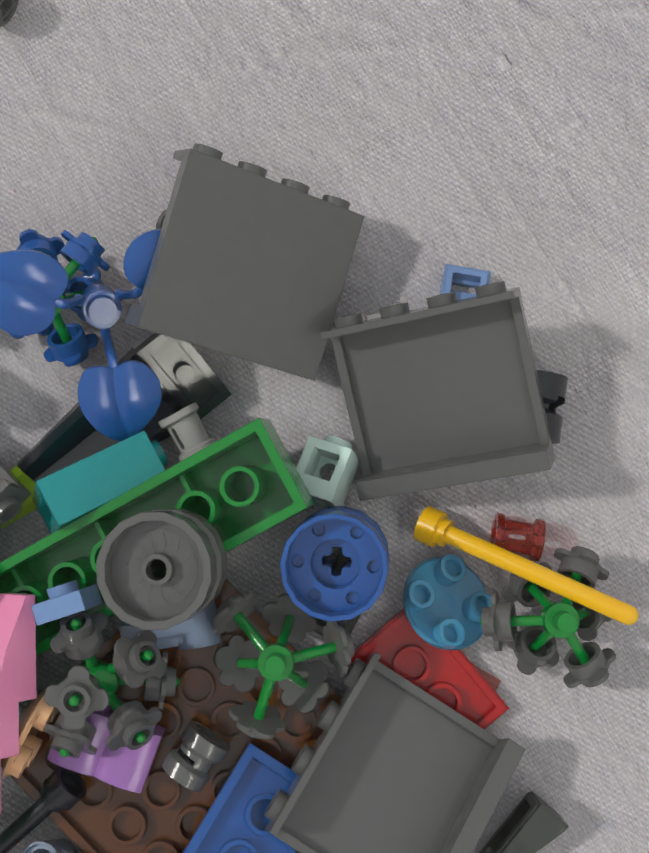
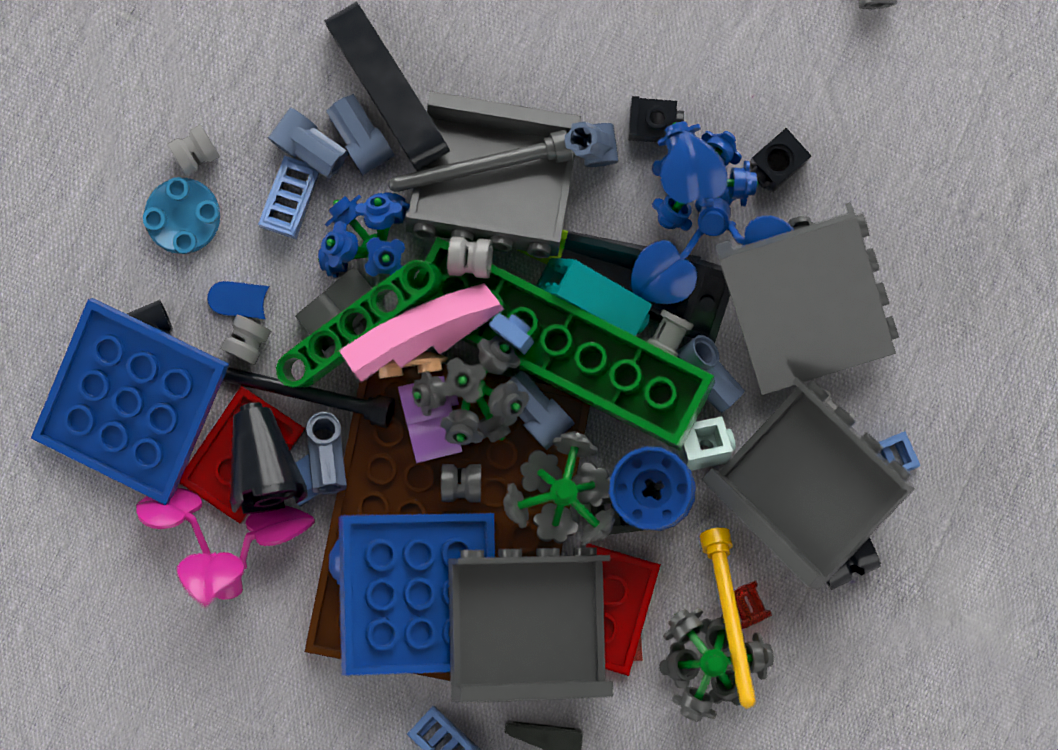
camera: 55 degrees right, 0 degrees up
(86, 186) = (790, 149): none -> black brick
(134, 563) = (560, 365): dark grey wheel -> none
(235, 410) = (705, 355): none -> sand blue piece
(445, 602) = (670, 583): dark azure dish -> none

